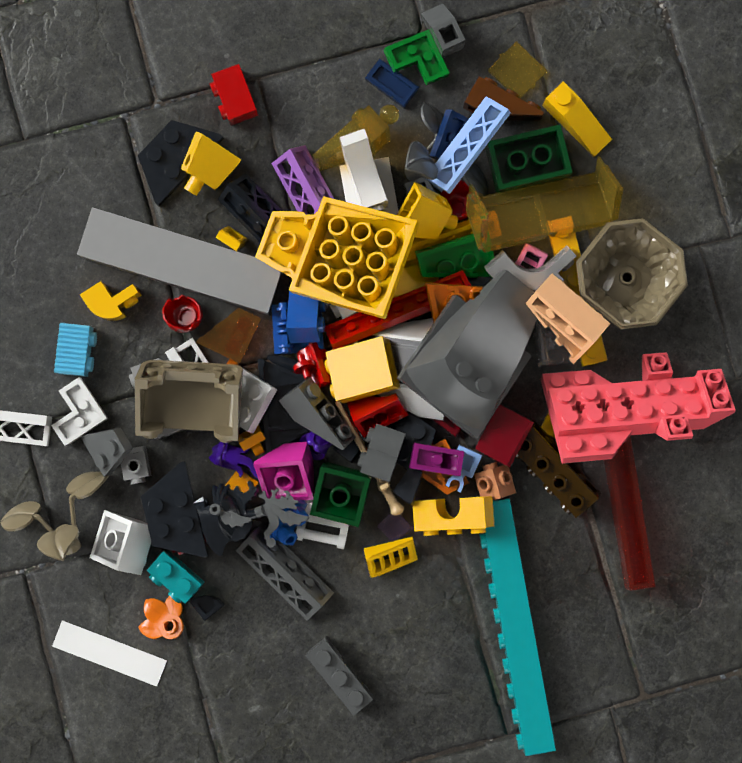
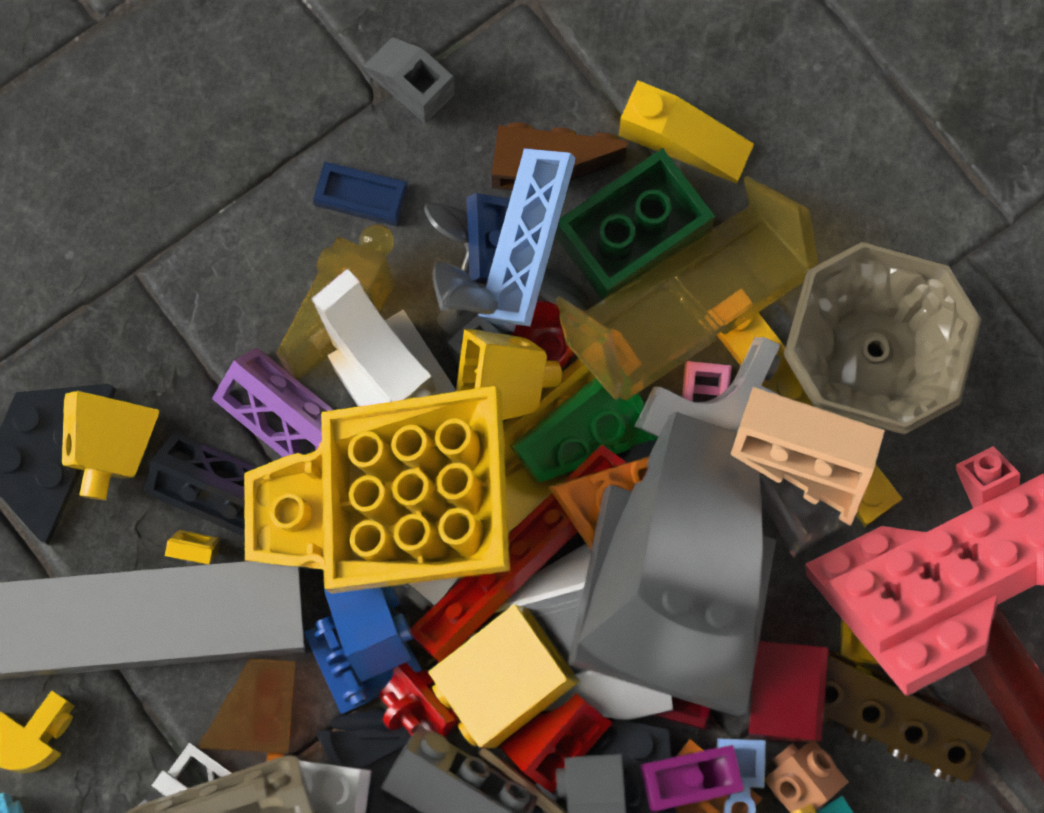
camera: 25 degrees left, 10 degrees down
(182, 314) = (157, 708): red hair -> none
(234, 95) = (106, 311): red brick -> none
(420, 51) = (384, 124): green plate -> none
(517, 70) = (555, 95): clear yellow piece -> none

